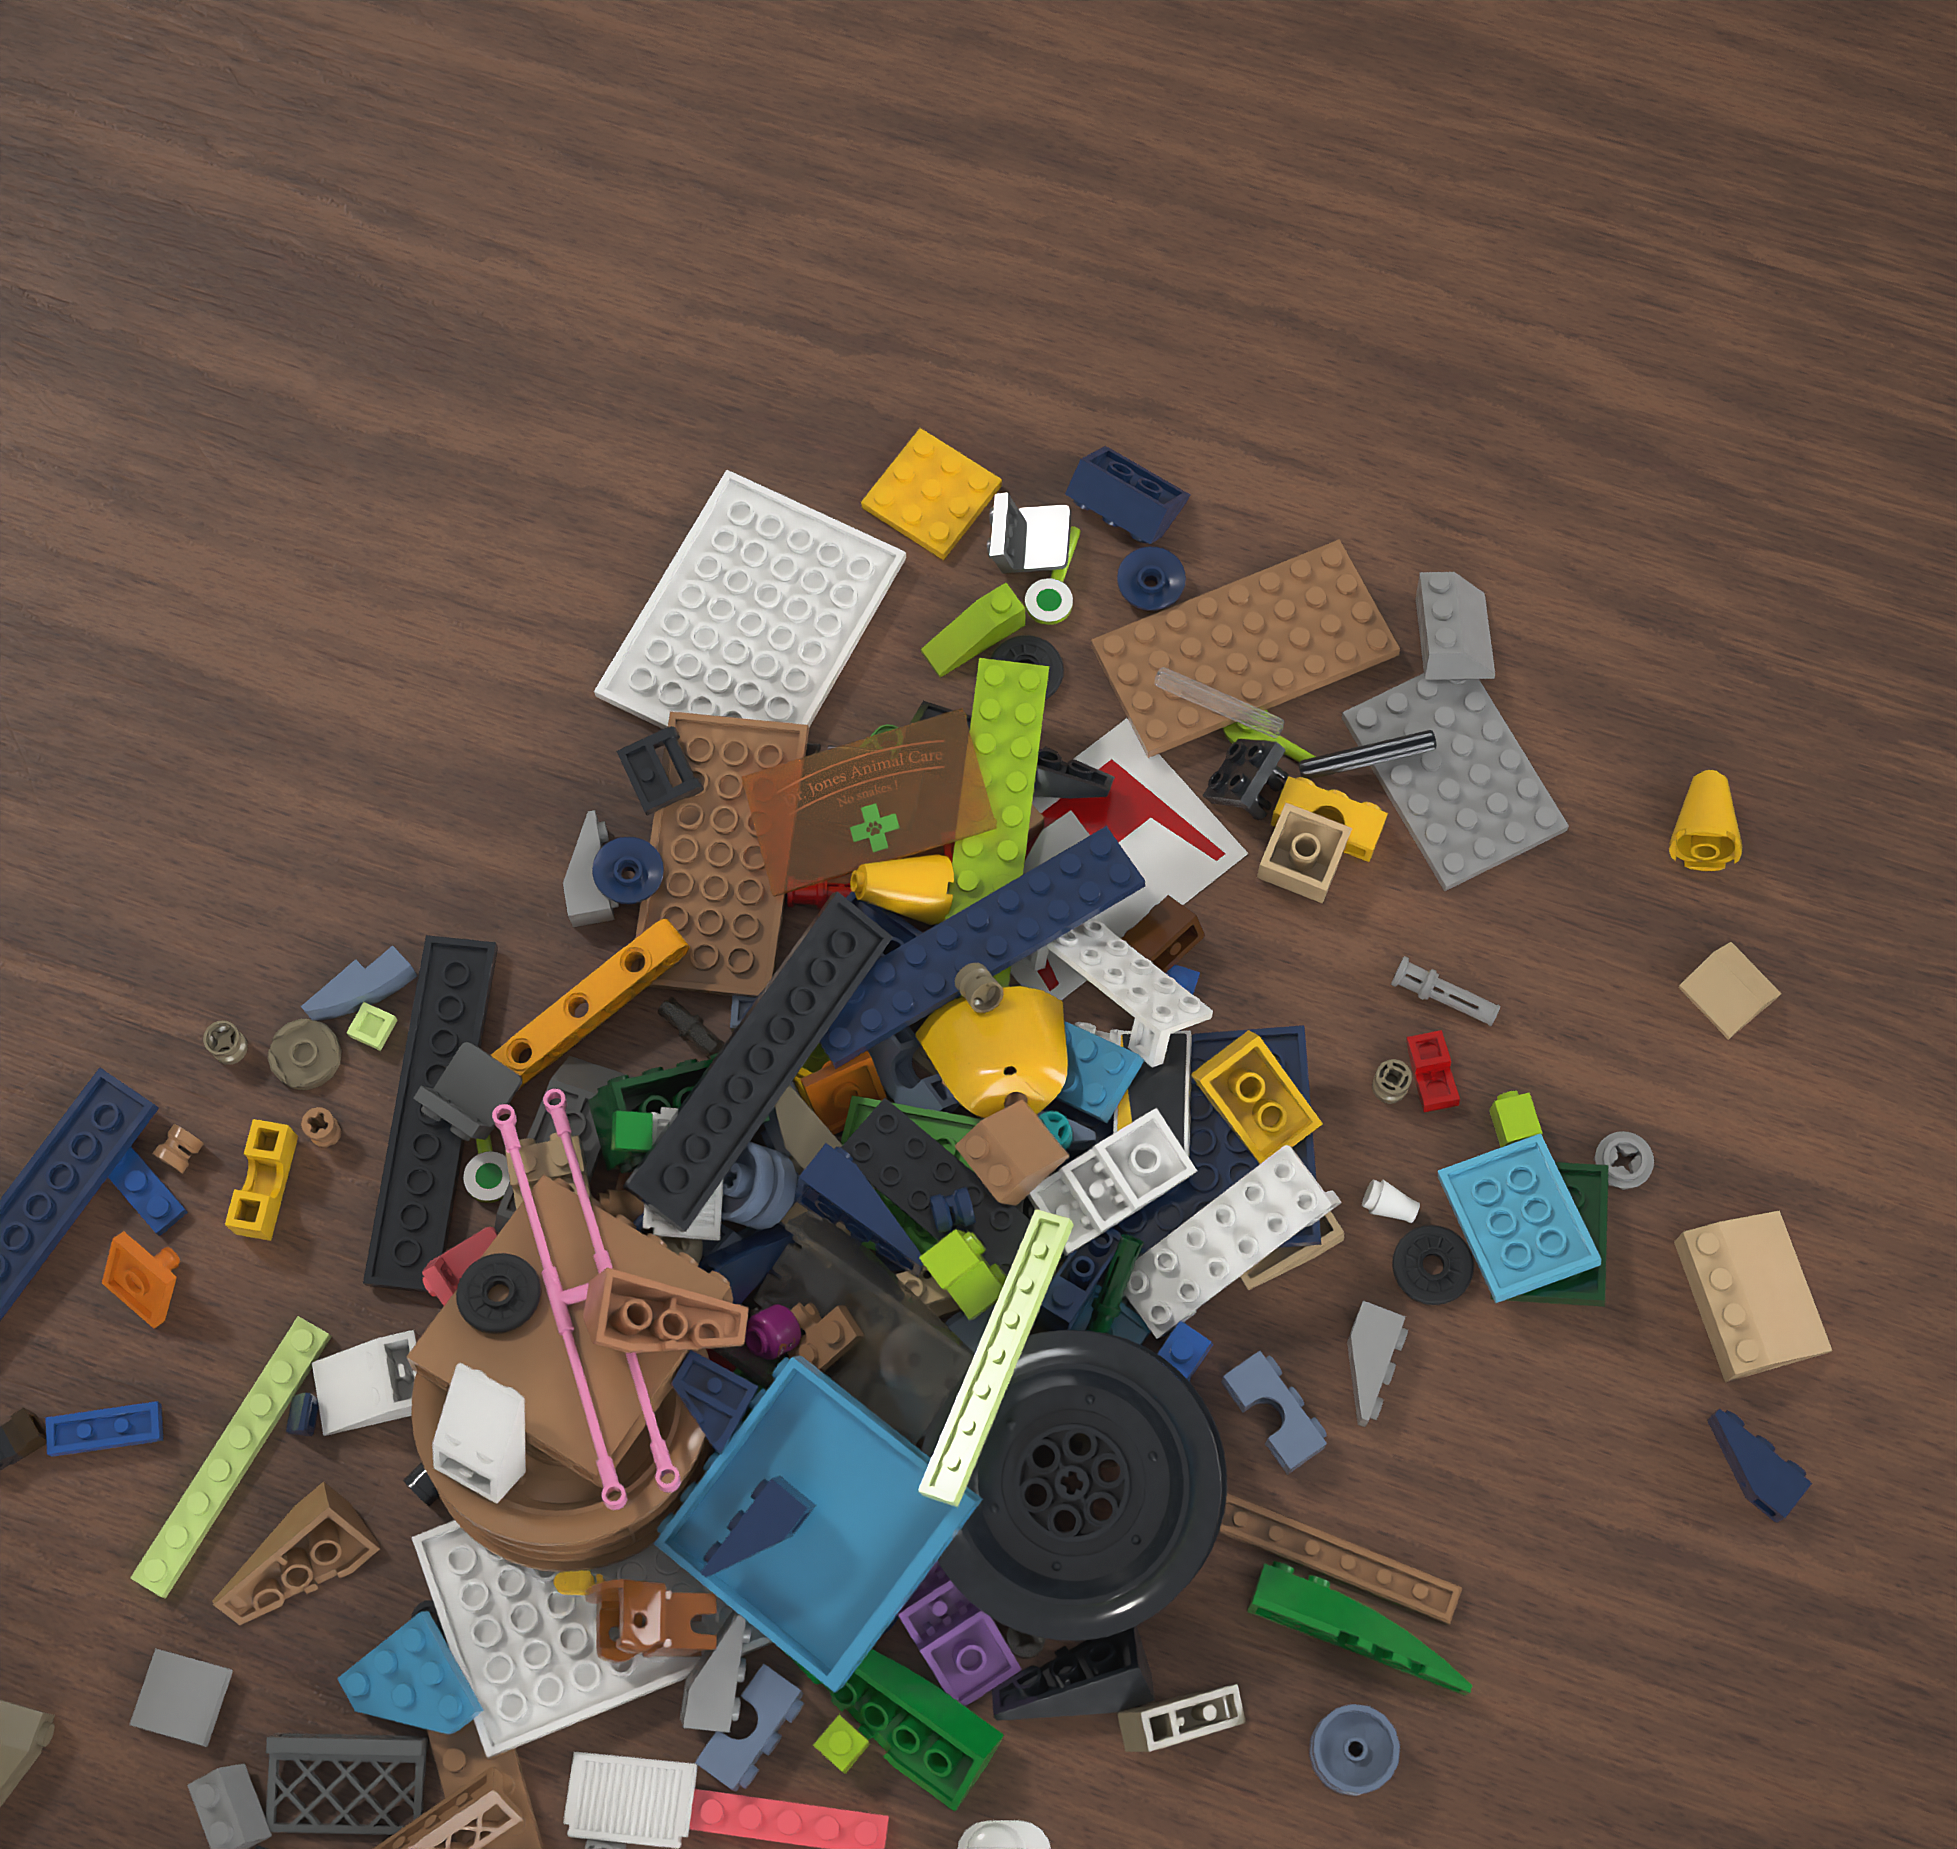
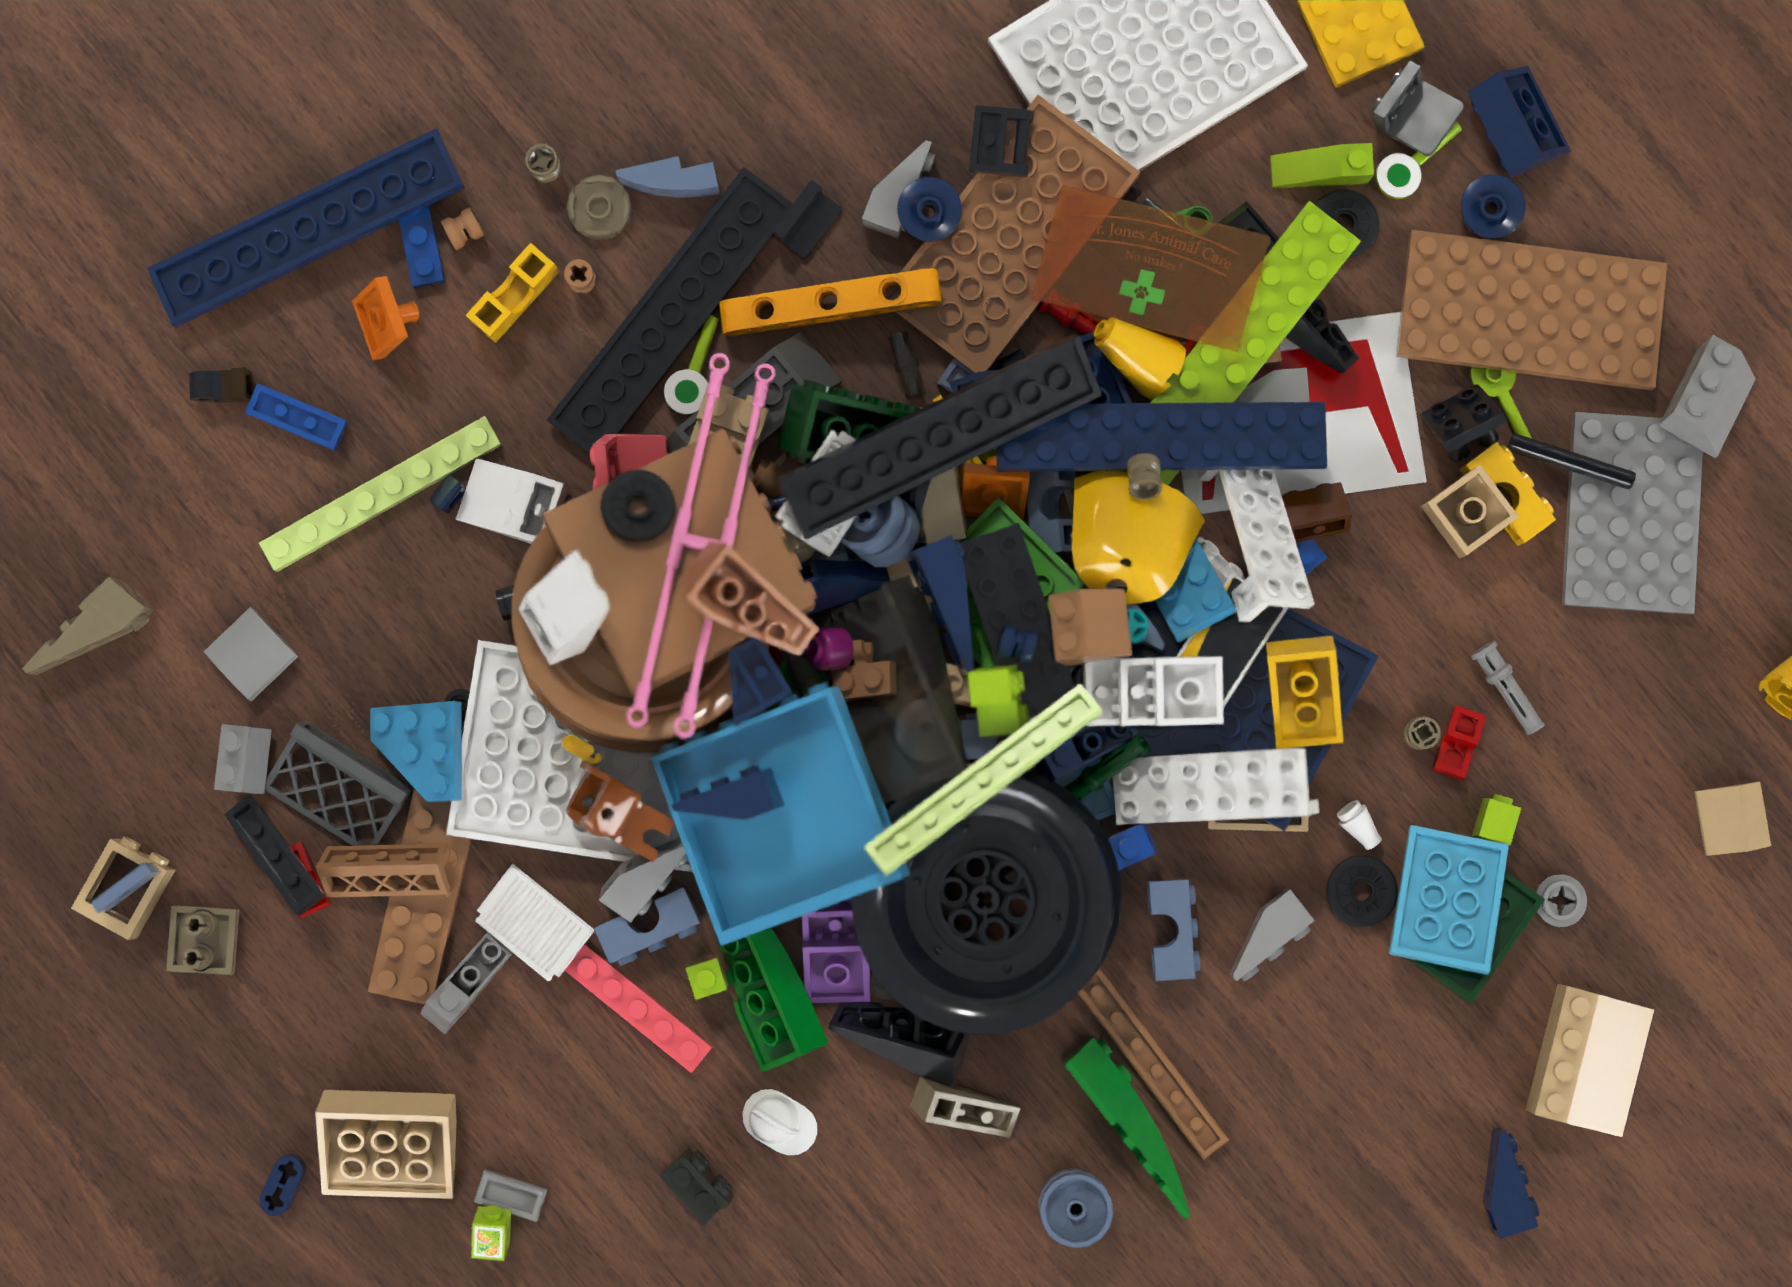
camera: 30 degrees right, 15 degrees up
(308, 1547) = (400, 597): medium nougat wedge -> none
(372, 1026) = (662, 216): yellowish green plate -> none
(470, 1092) = (707, 320): dark grey bracket -> none
(516, 951) = (807, 221): none -> black panel
(632, 1131) = (808, 438): green tile -> none
(1219, 702) = (1480, 348): clear axle -> none

